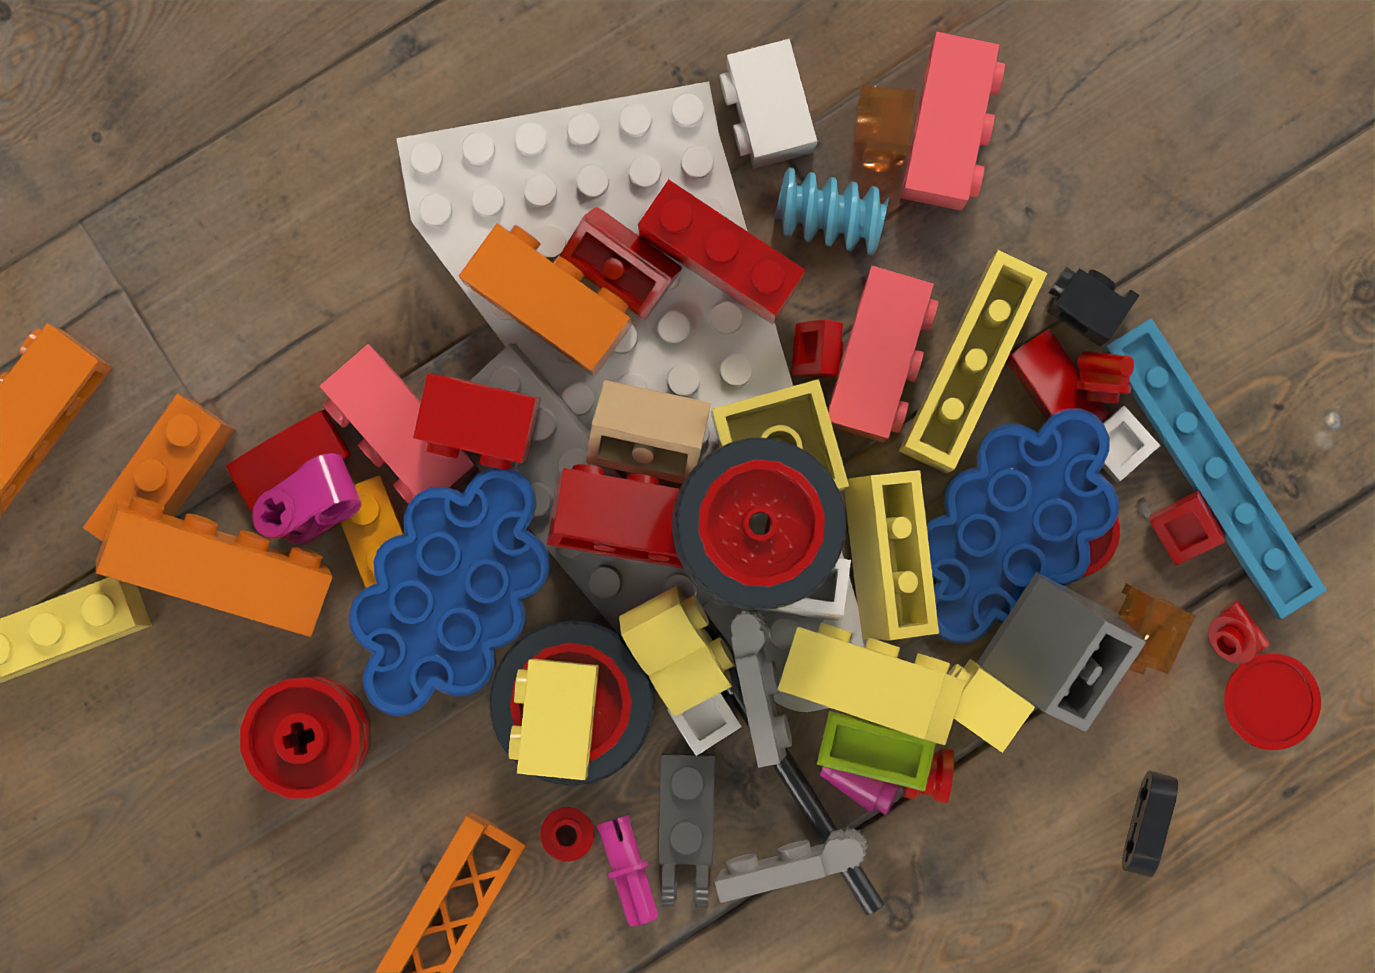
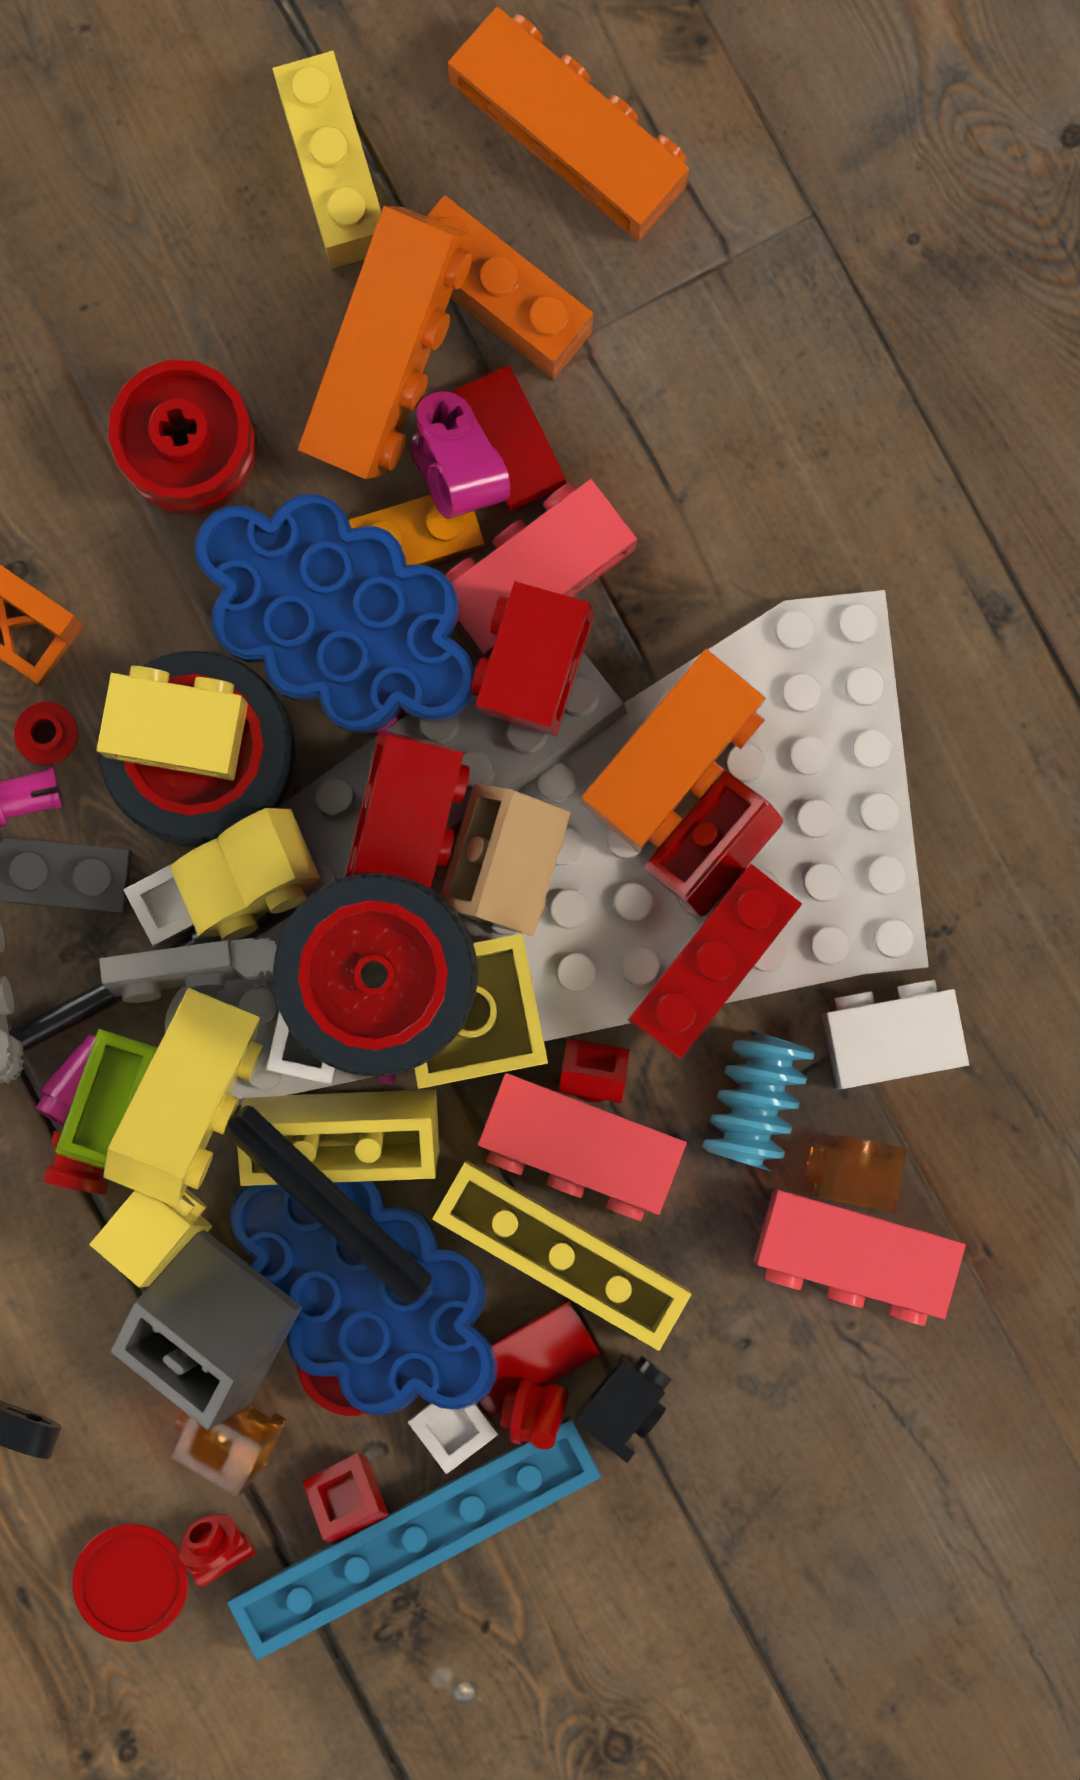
camera: 90 degrees right, 0 degrees up
(949, 556) = (328, 1204): none -> black axle

